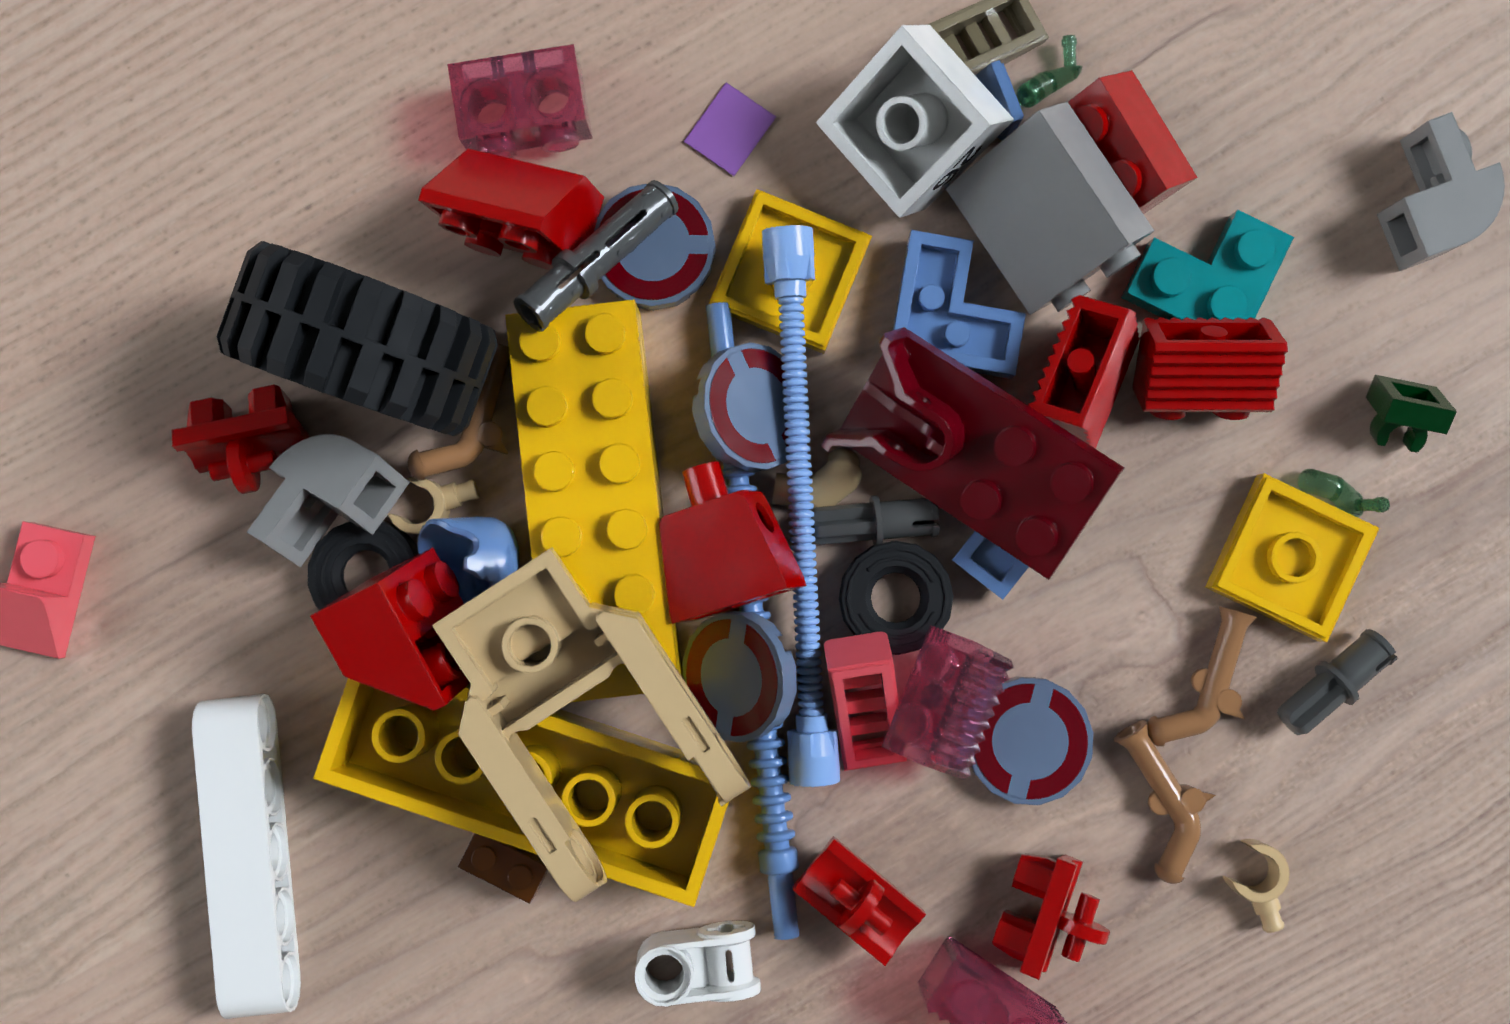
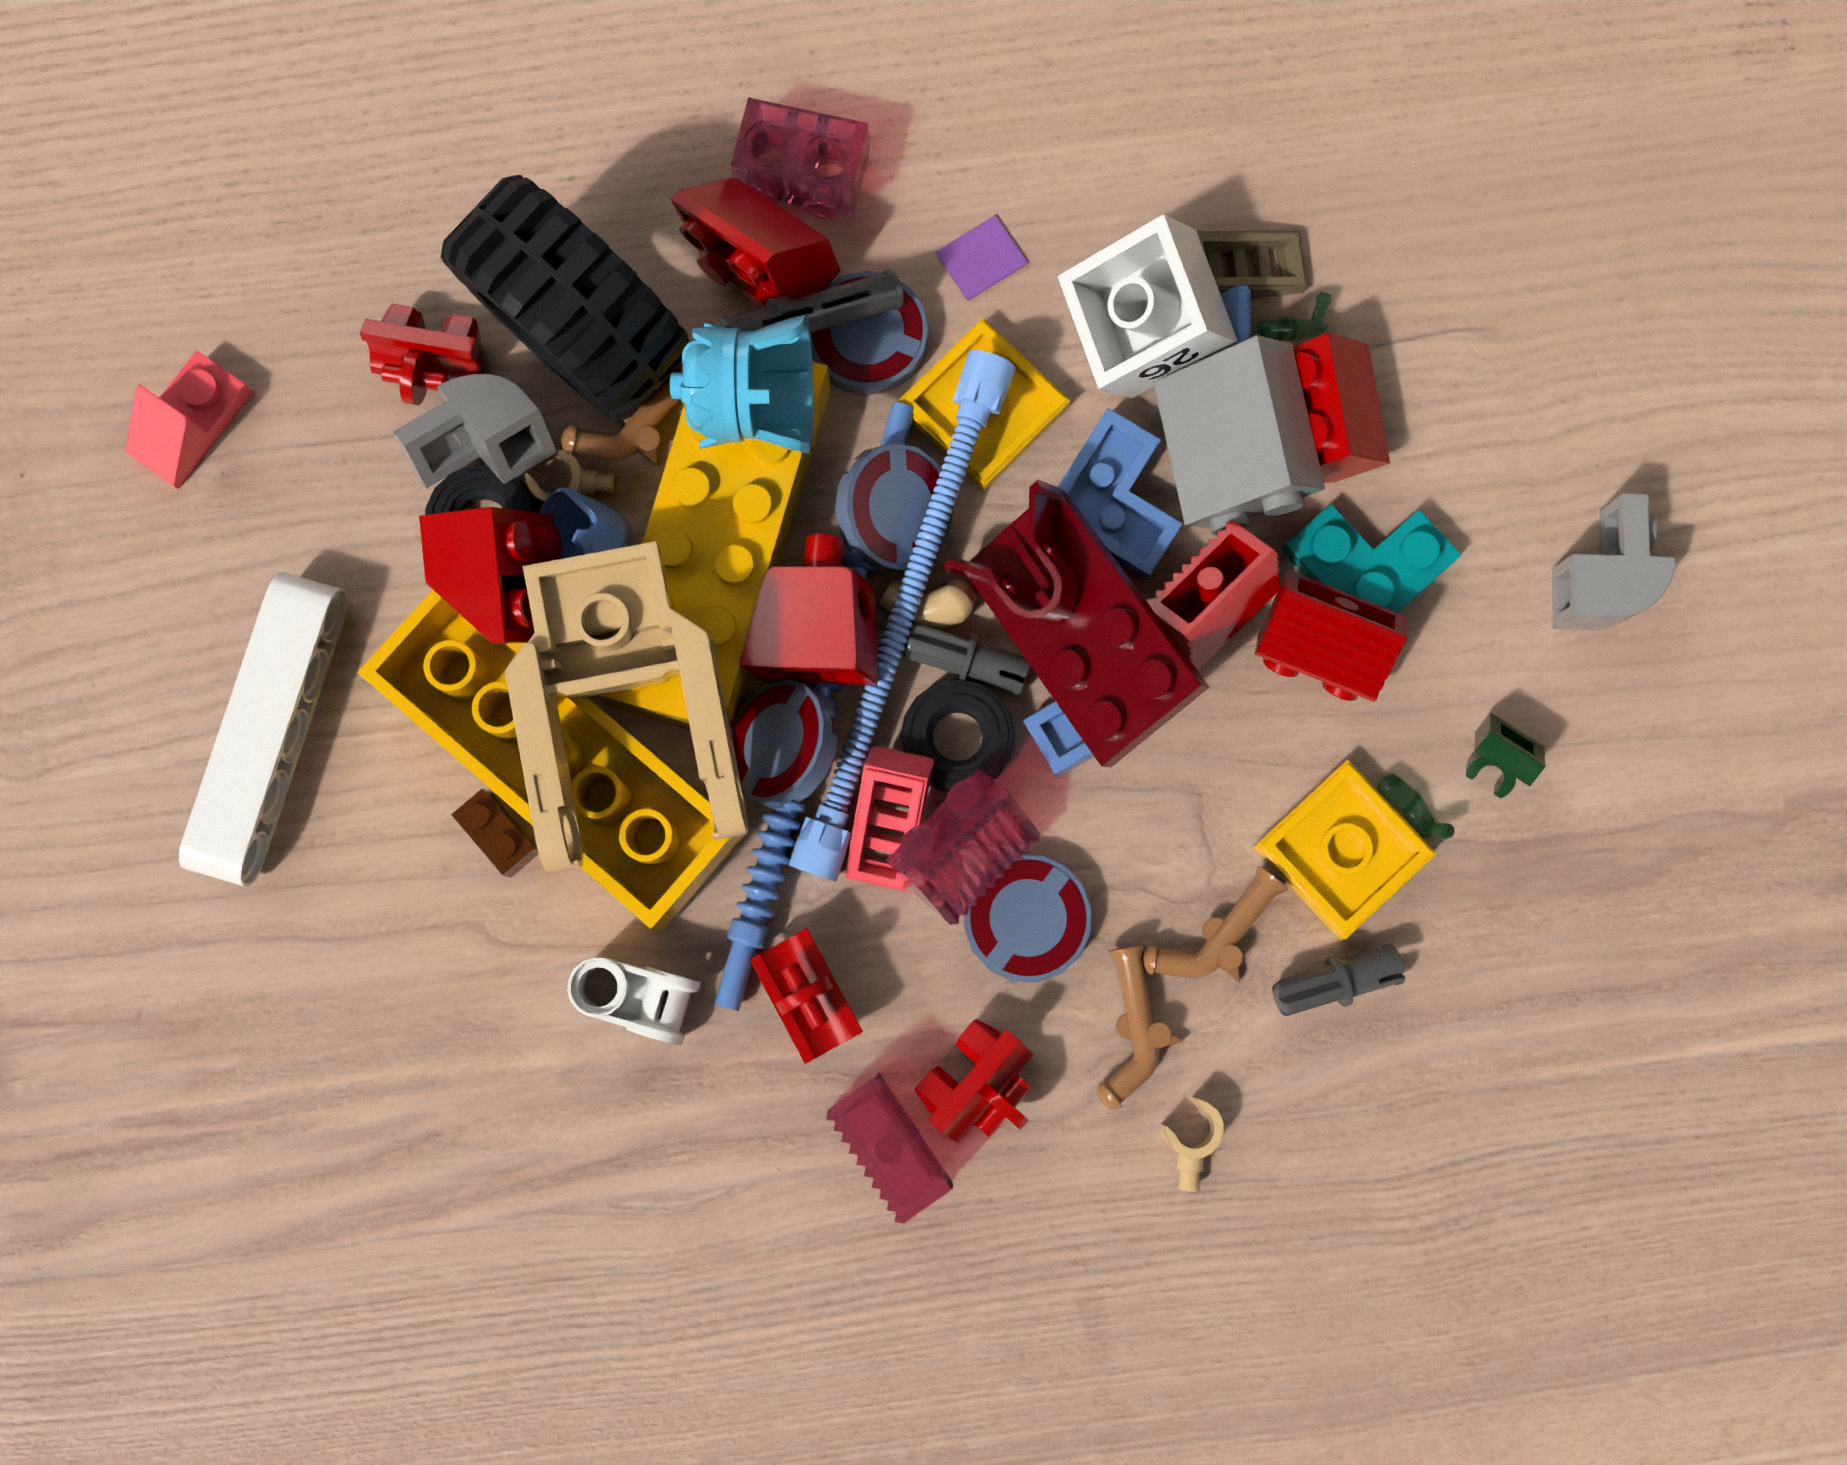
camera: 20 degrees right, 5 degrees down
(573, 357) = (749, 384): none -> medium azure hat

